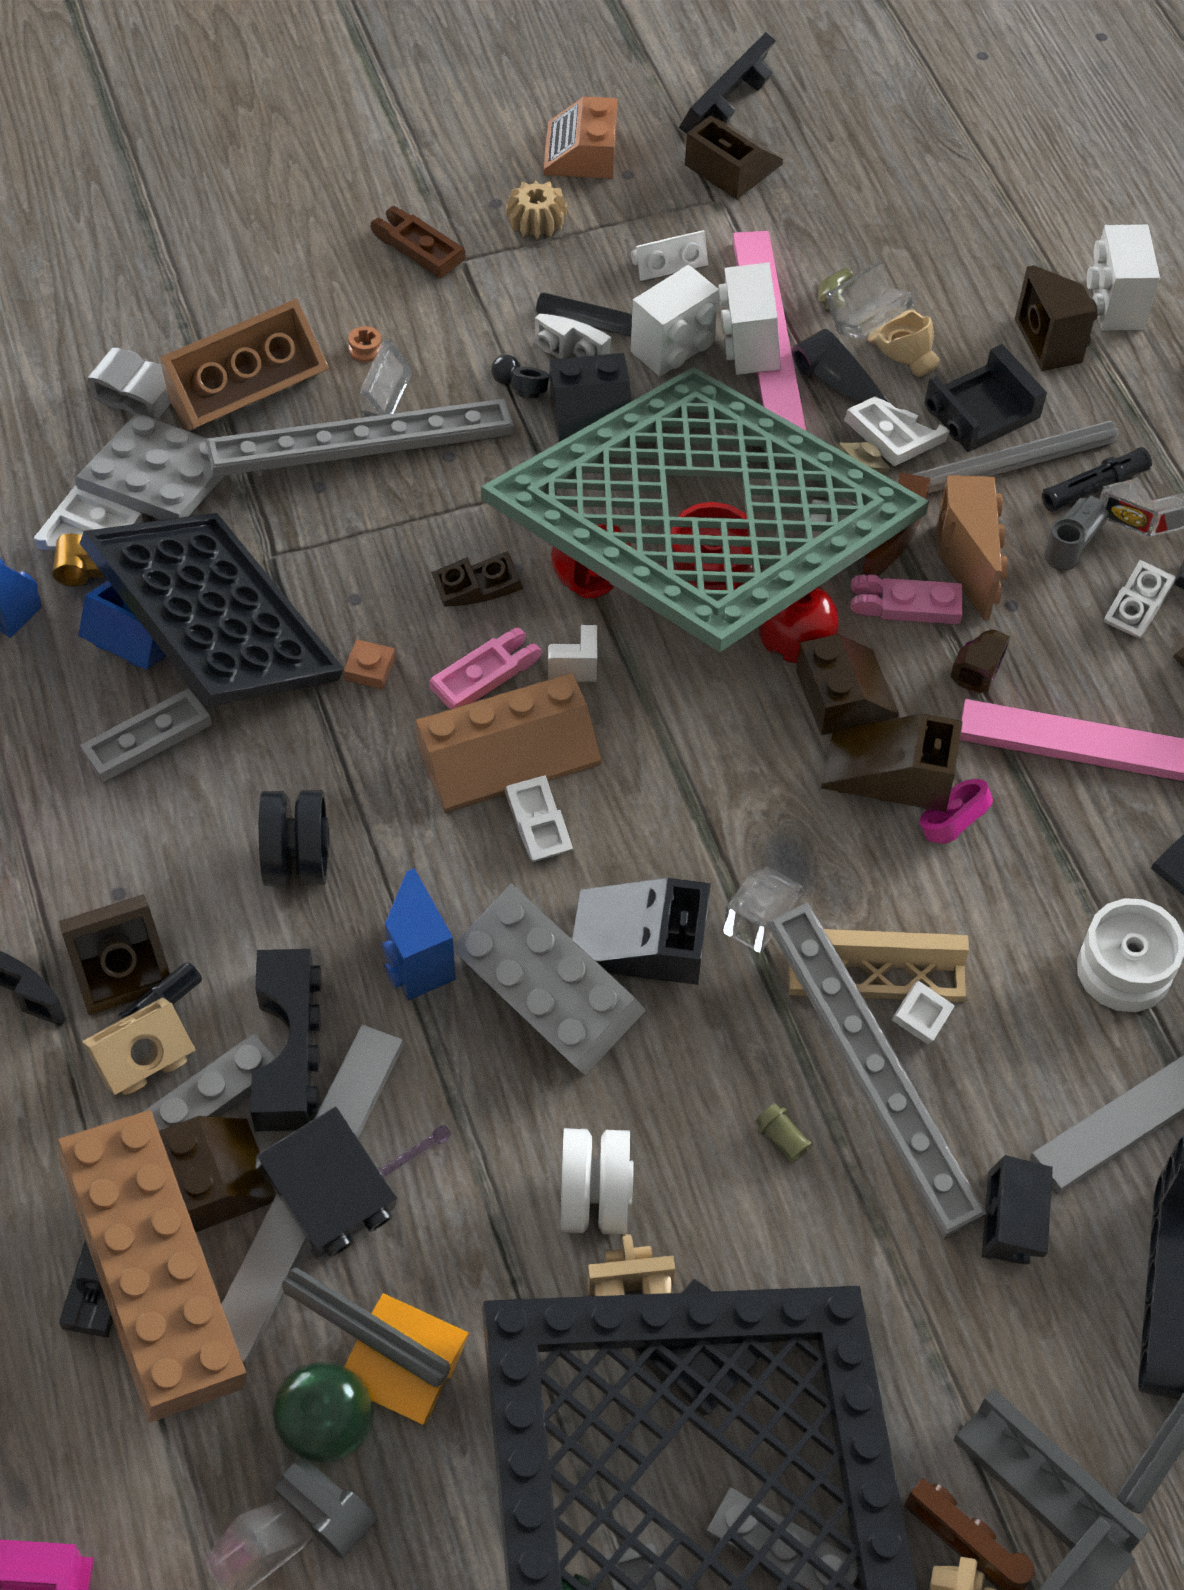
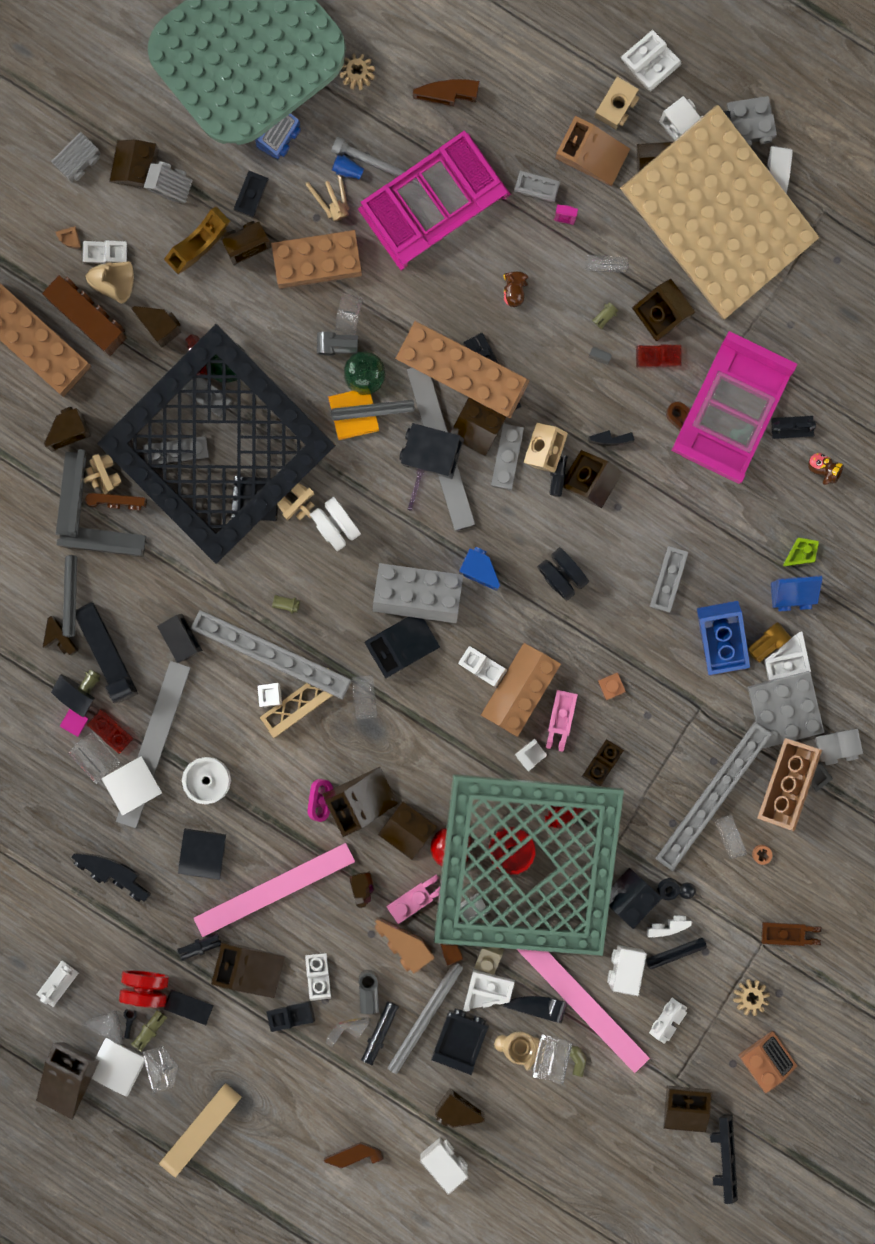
camera: 140 degrees right, 30 degrees up
(211, 608) = (691, 651): black plate -> none
(283, 1087) = (514, 516): black arch -> none
(750, 318) = (590, 993): white brick -> none

